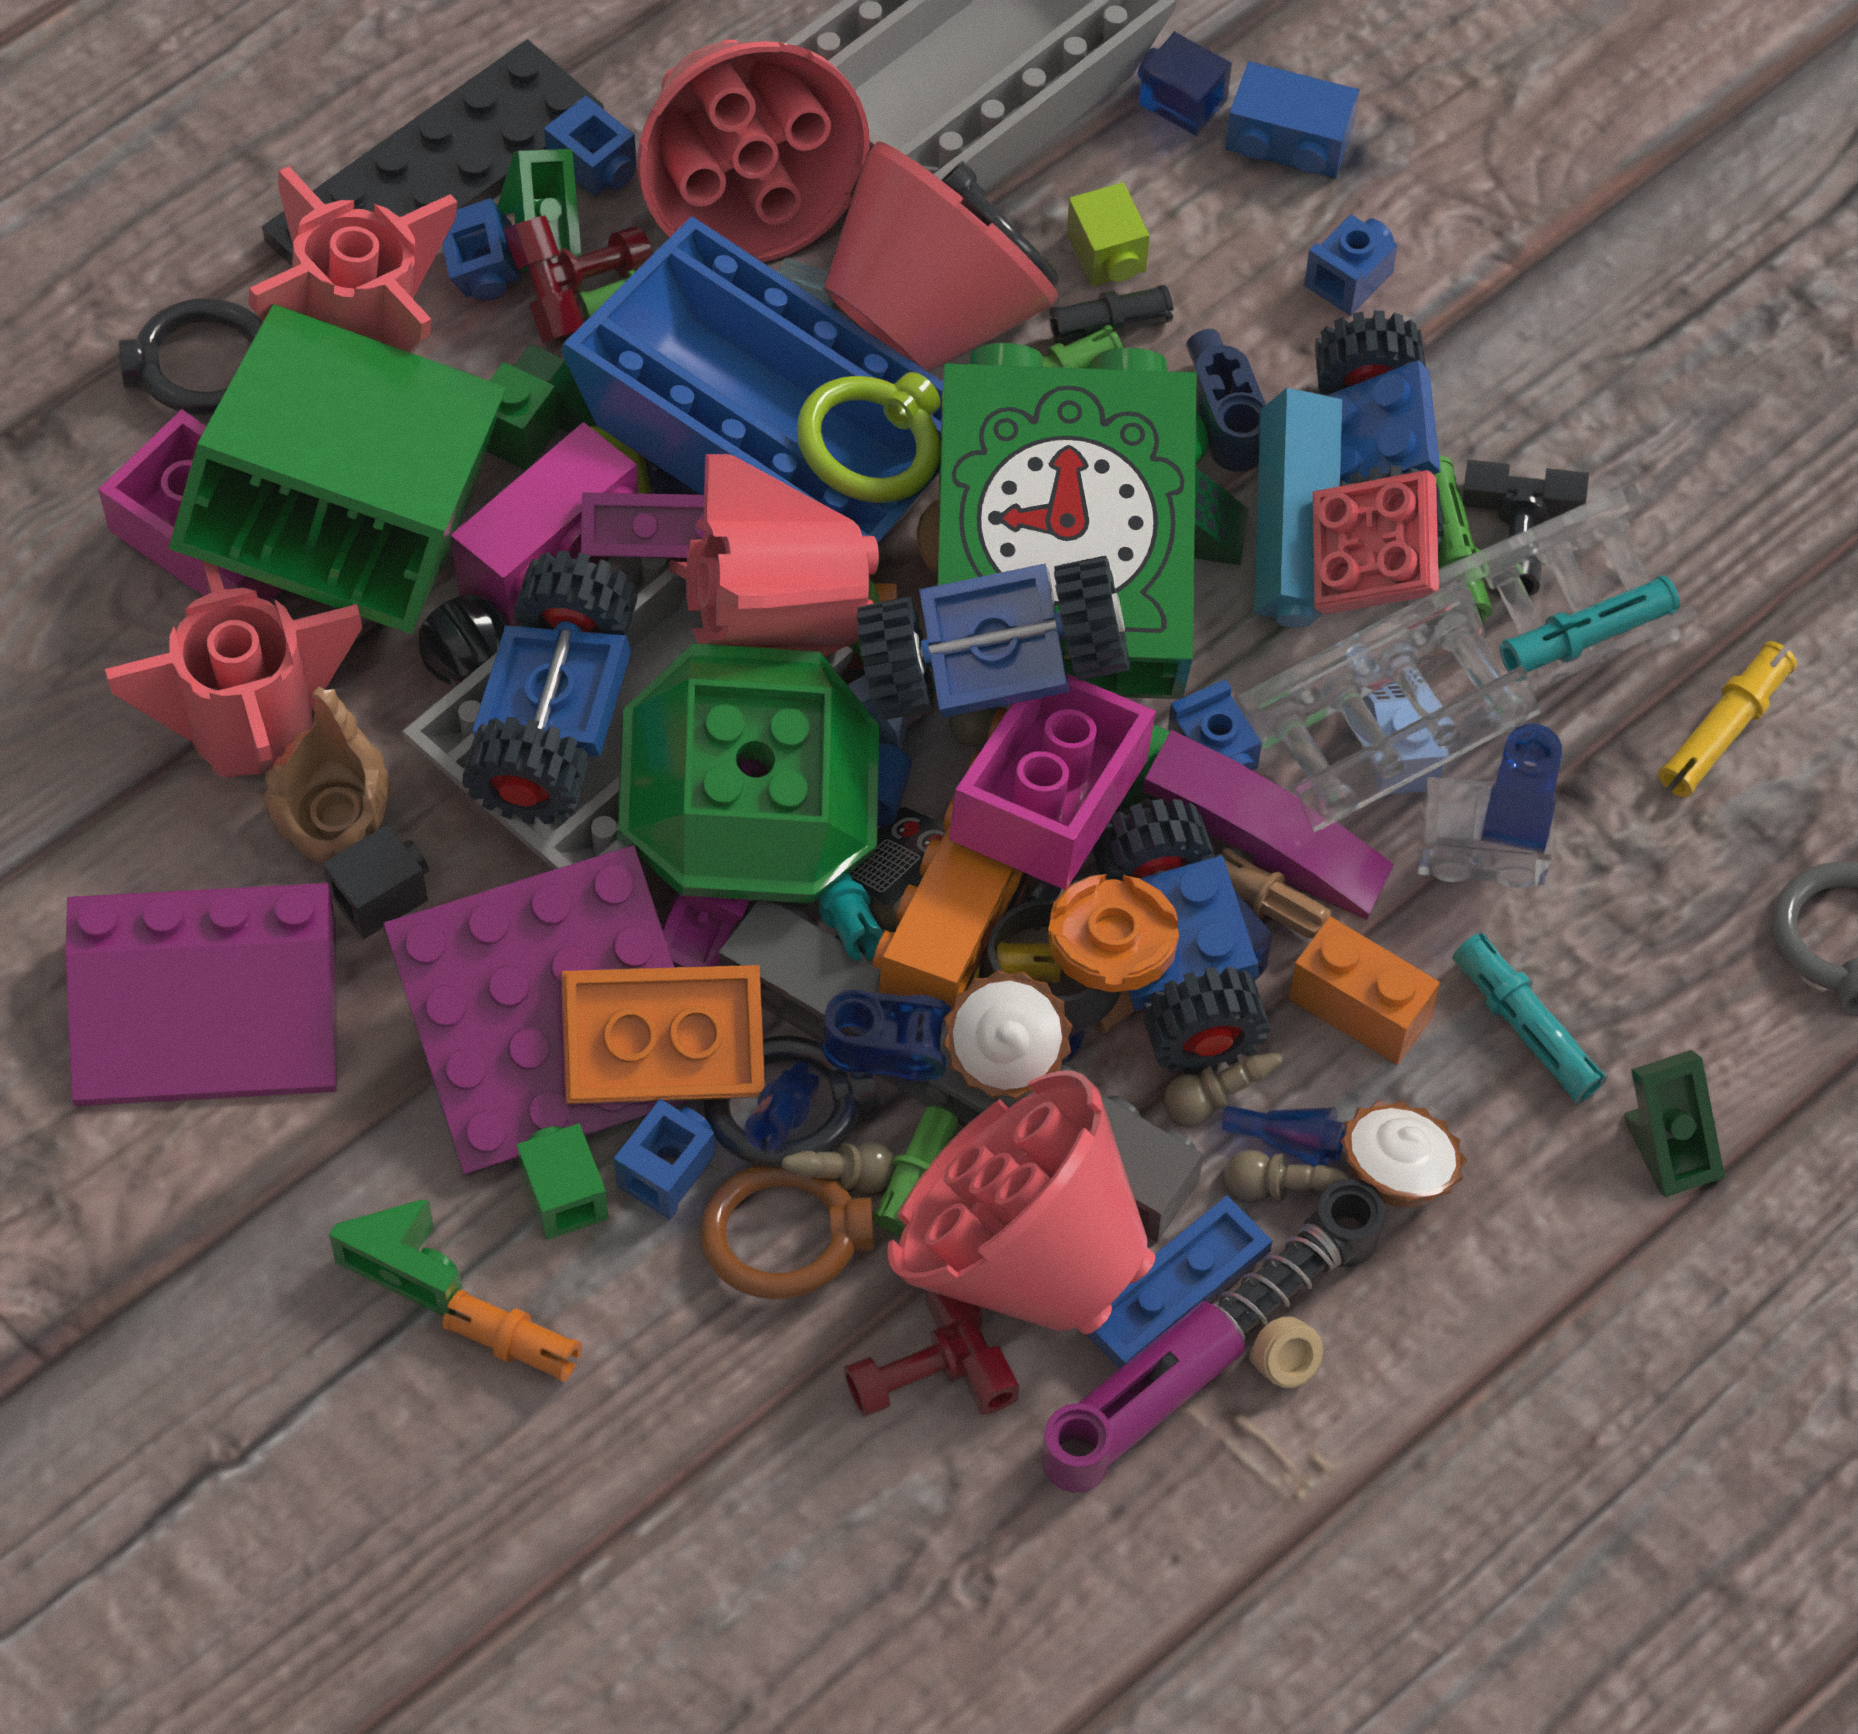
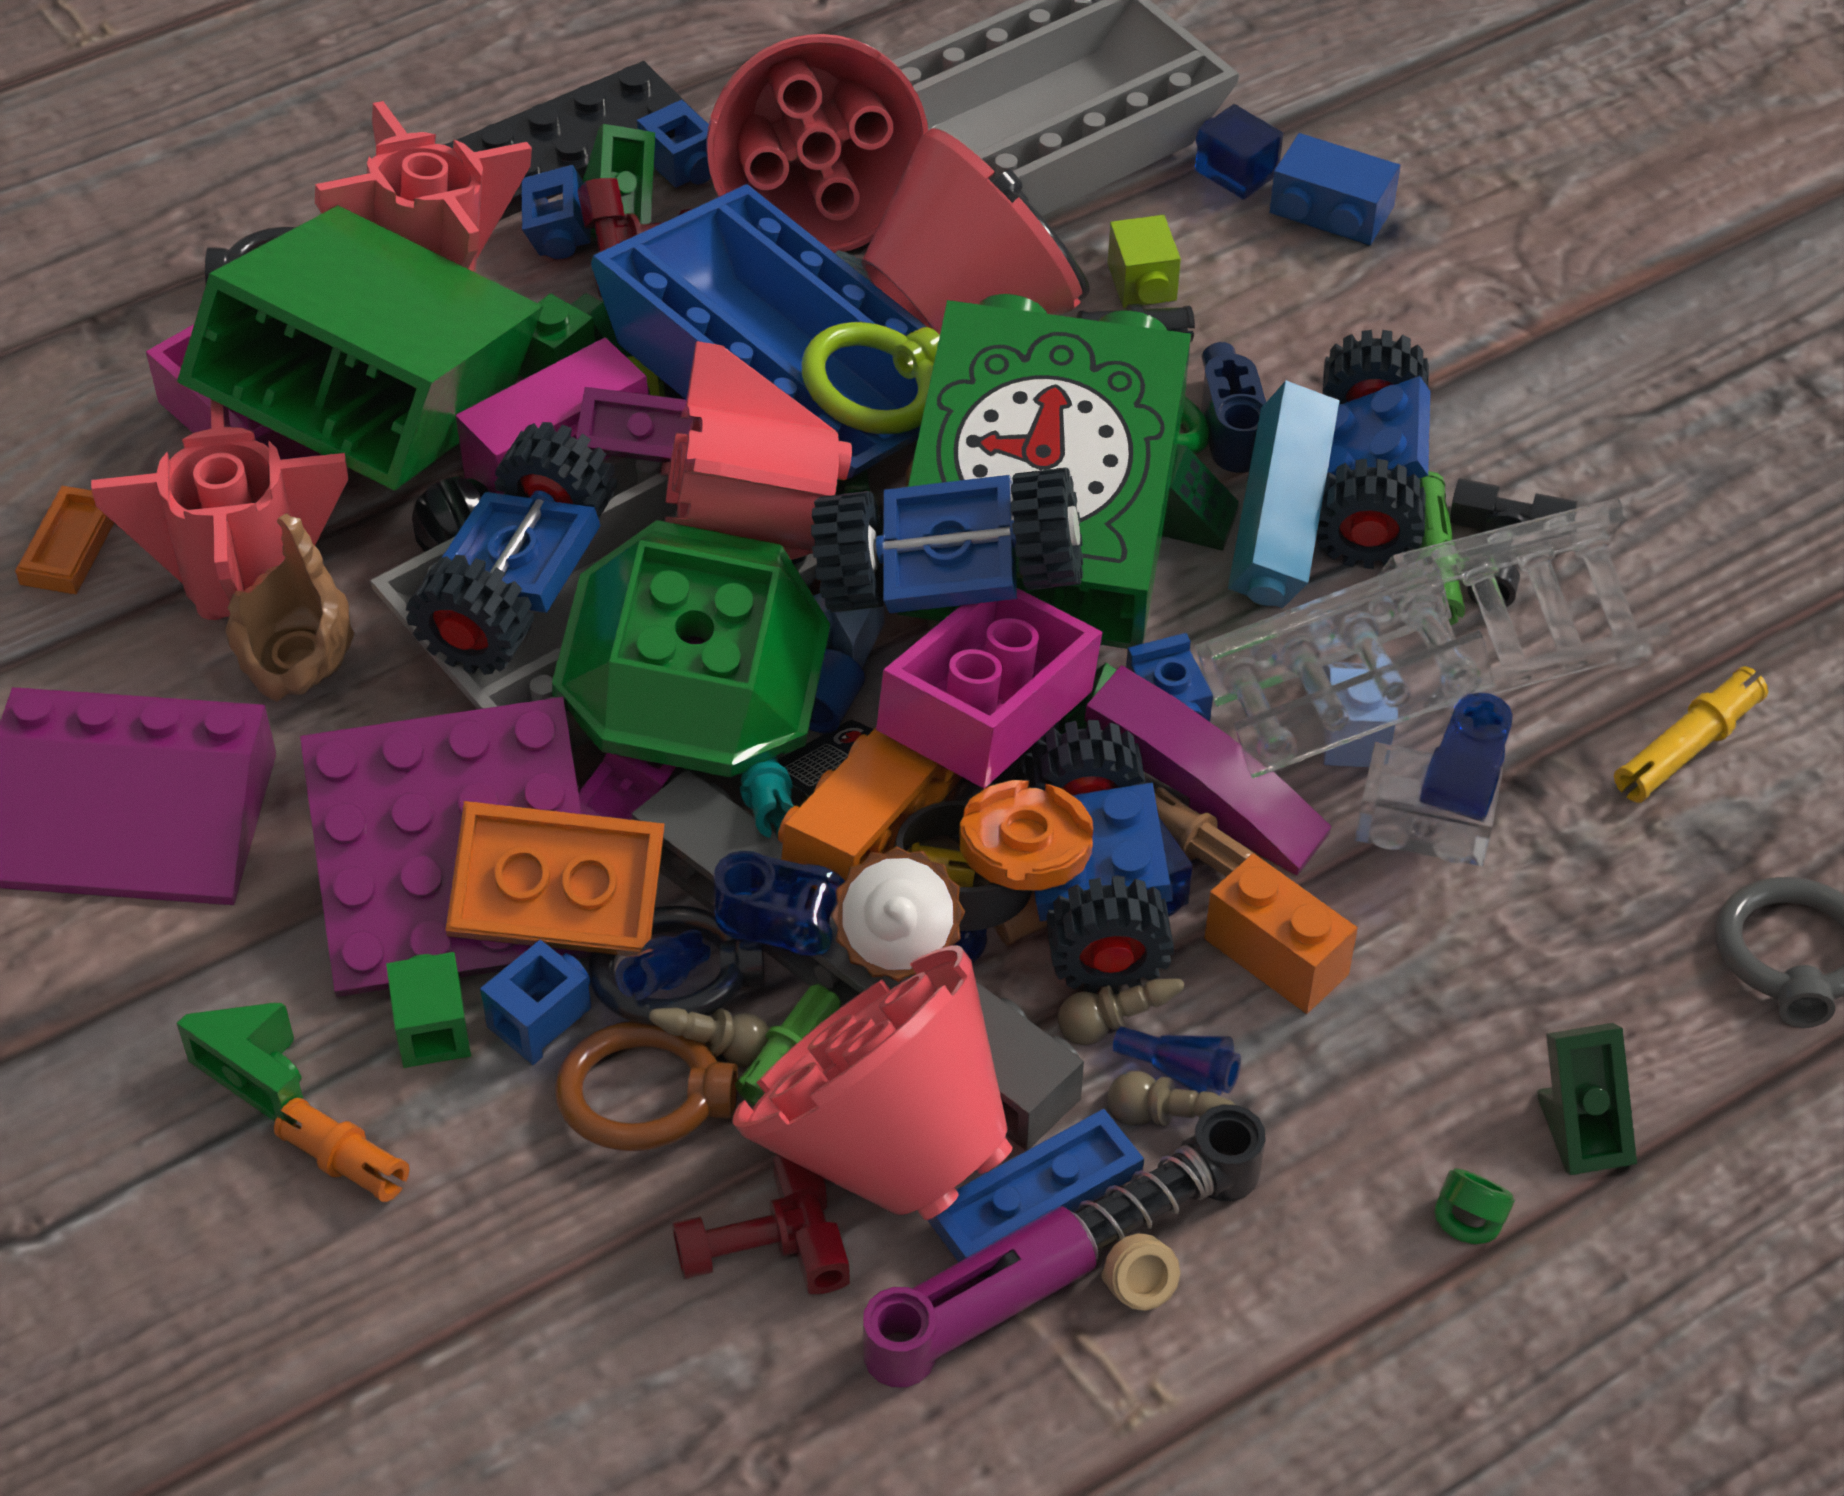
camera: 10 degrees right, 10 degrees down
(59, 706) = (65, 543): none -> orange tile
(377, 880) = (316, 705): black brick -> none
(1351, 263) = (1376, 295): blue brick -> none
(1375, 542) = (1351, 521): coral tile -> none
(1402, 1153) = (1294, 1091): white piece -> none
(1512, 997) = (1434, 960): teal pin -> none
(1567, 635) = (1535, 630): teal pin -> none
(1584, 1235) = (1477, 1197): none -> green tile

